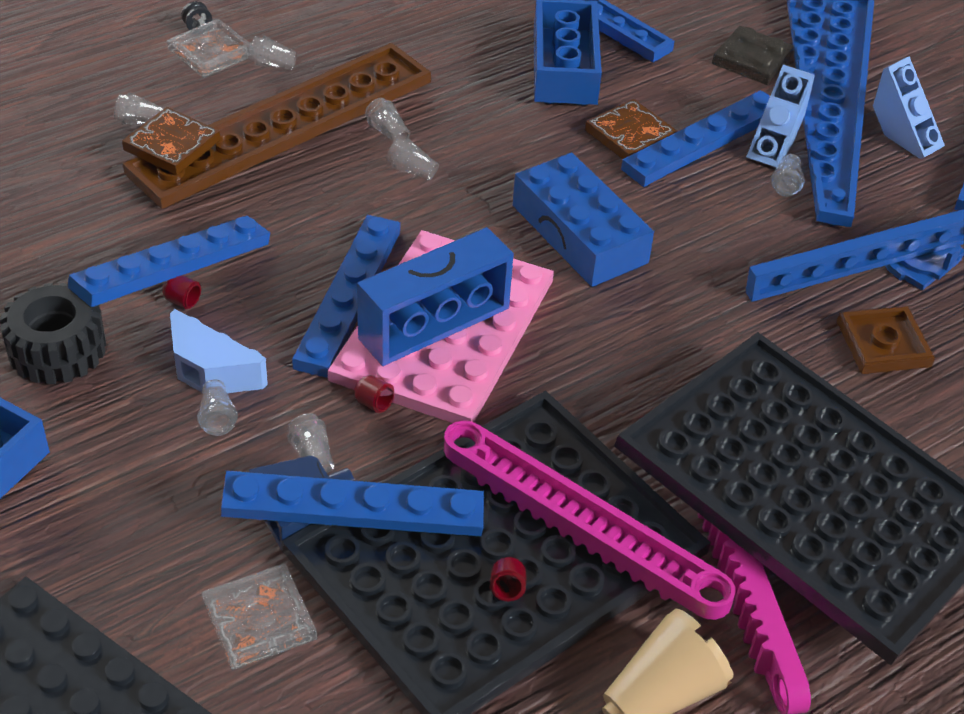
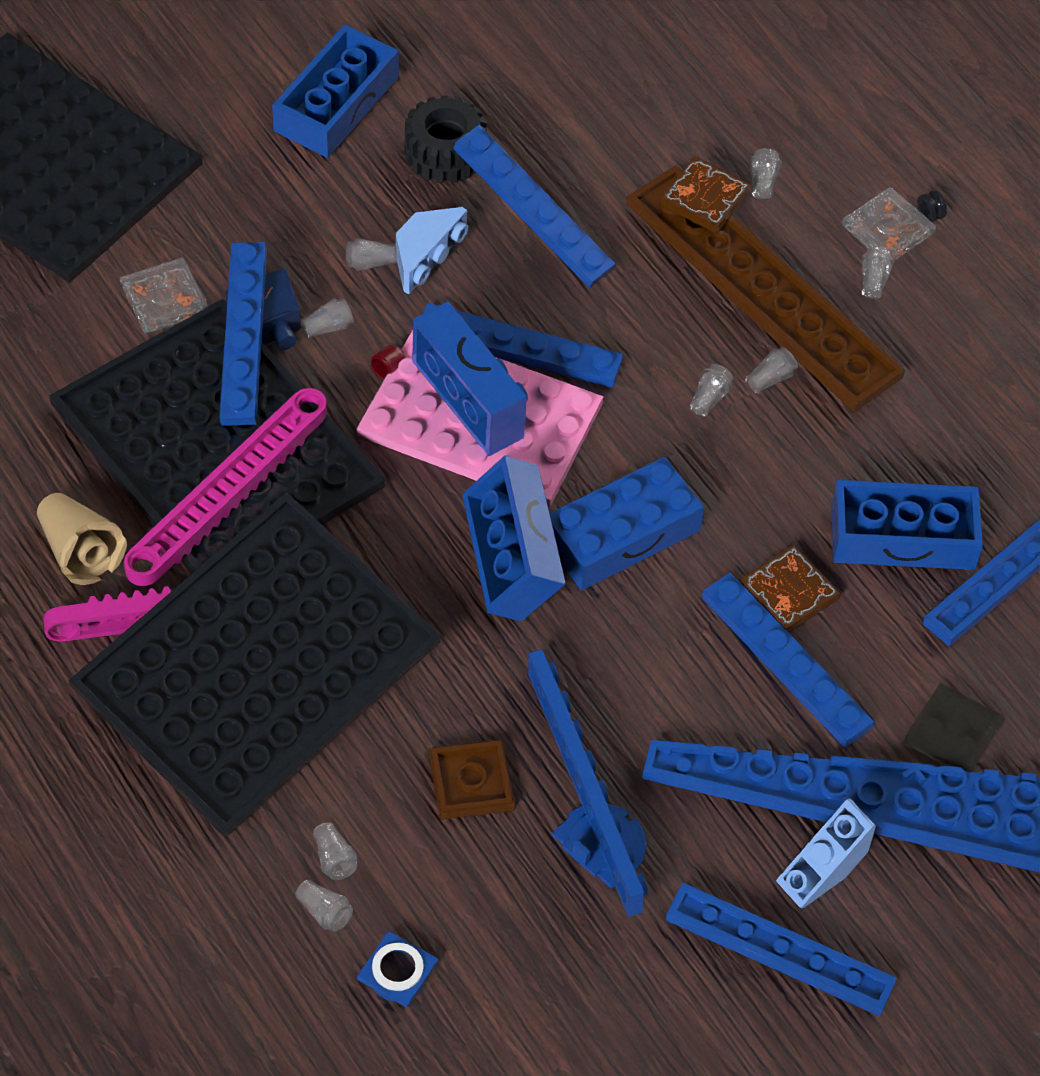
camera: 90 degrees right, 10 degrees up
(182, 291) = (508, 224): dark red piece -> none
(504, 570) = (173, 437): dark red piece -> none
(626, 279) = (513, 539): none -> blue brick
(782, 117) = (794, 720): light blue slope -> none
(788, 176) = (717, 725): clear cone -> none

